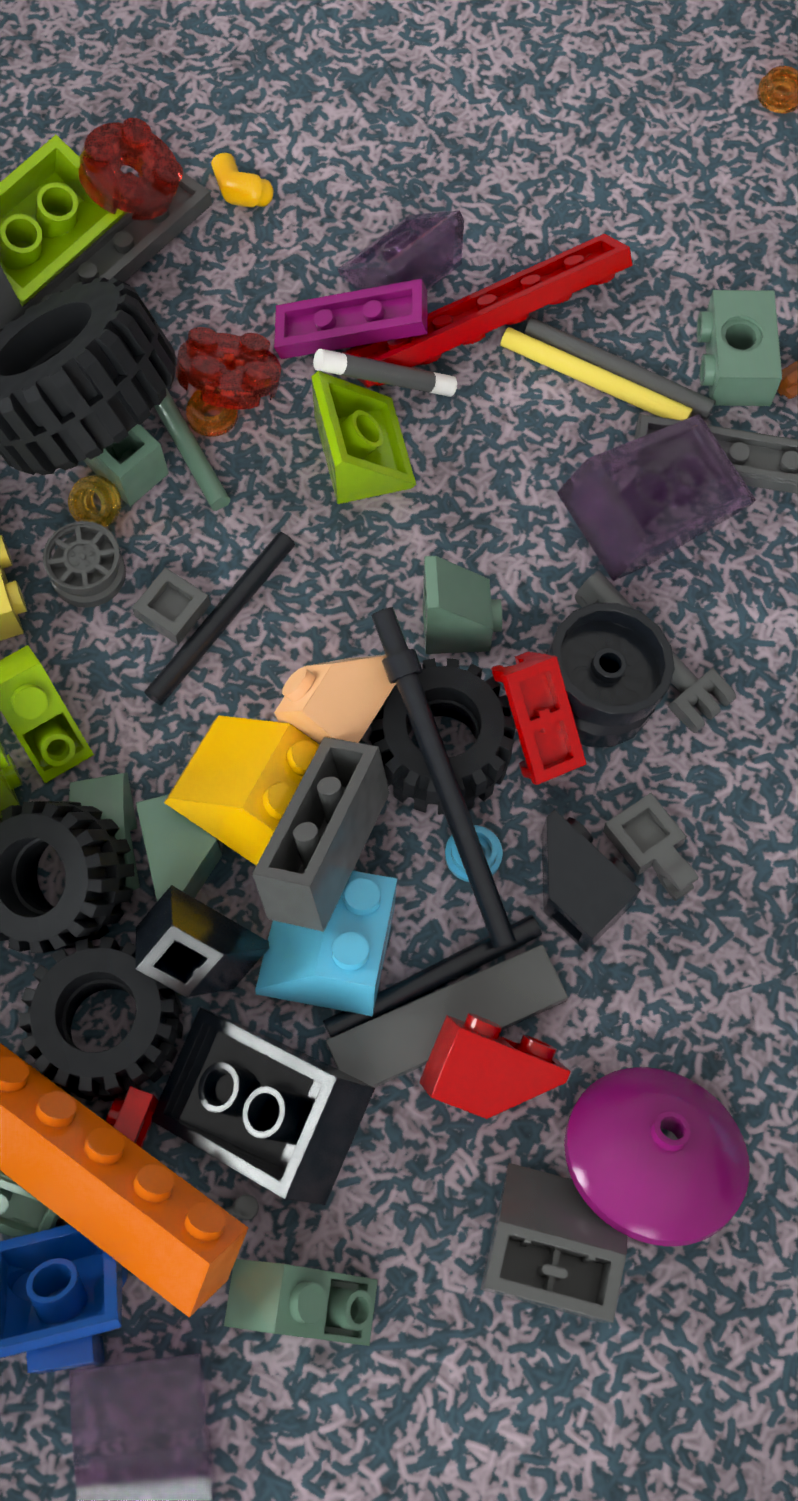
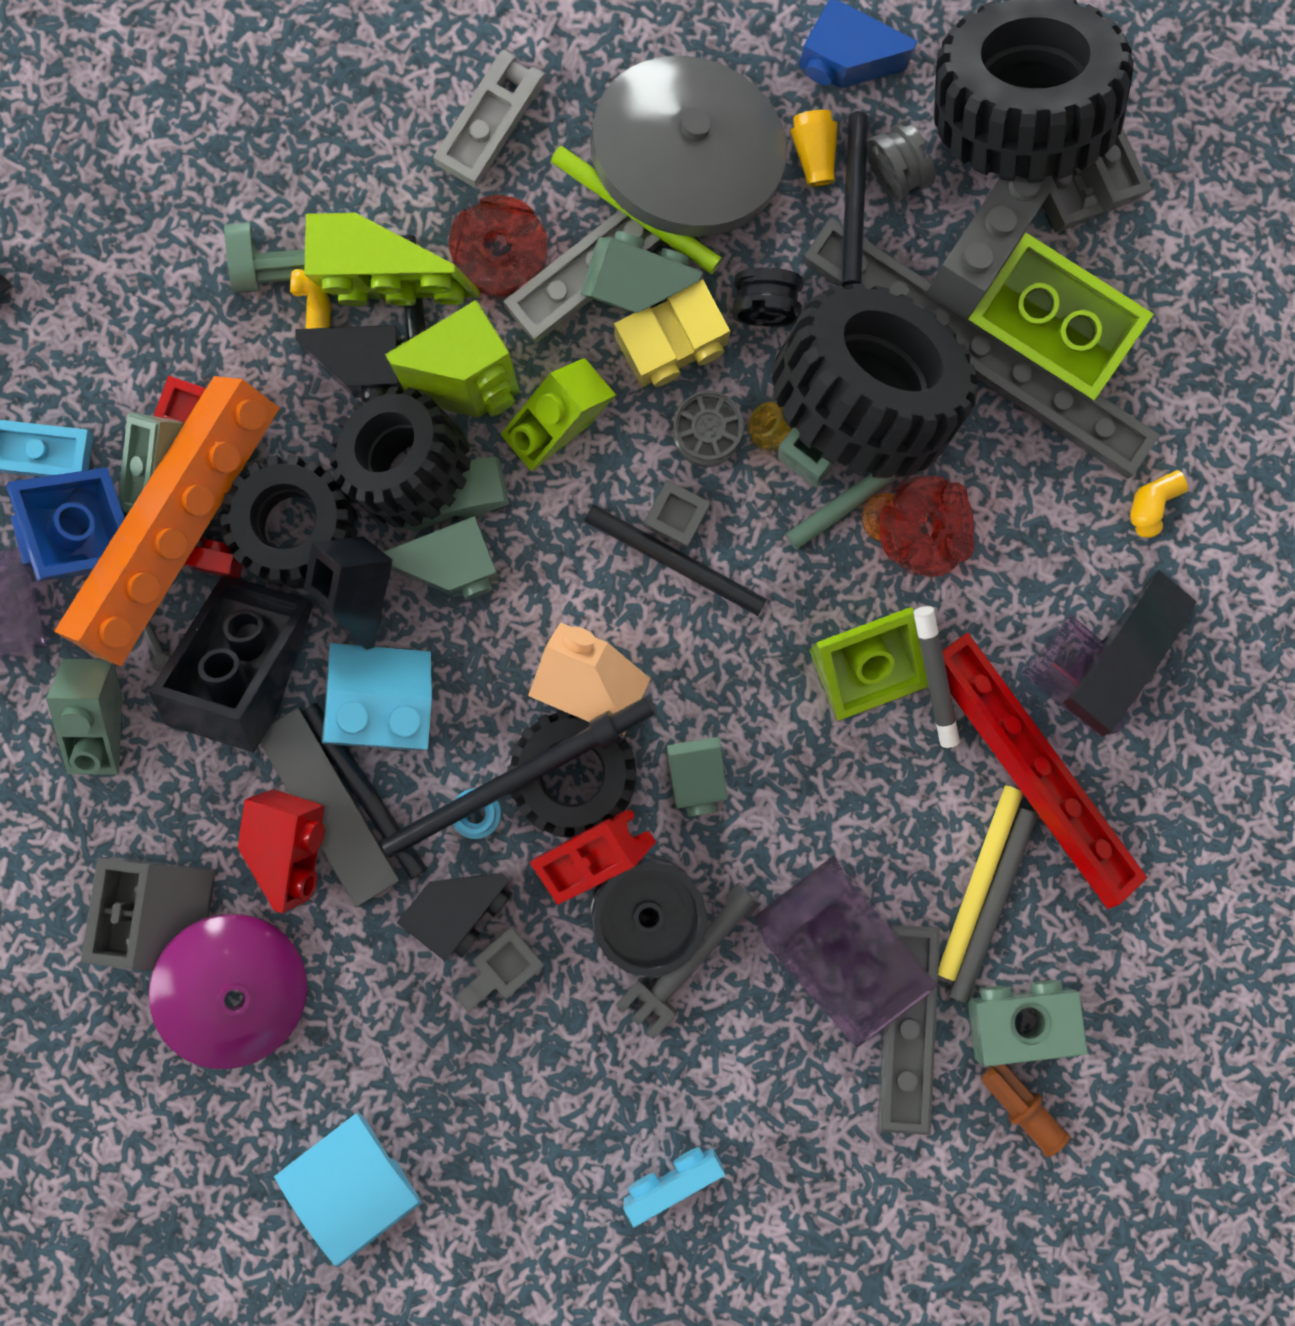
camera: 80 degrees right, 15 degrees up
(137, 147) = (1160, 392): clear red plate -> none
(243, 781) = (499, 611): yellow slope -> none
(322, 834) = (447, 680): dark grey brick -> none
(351, 319) = (998, 636): magenta plate -> none
(388, 204) = (1130, 654): none -> black slope

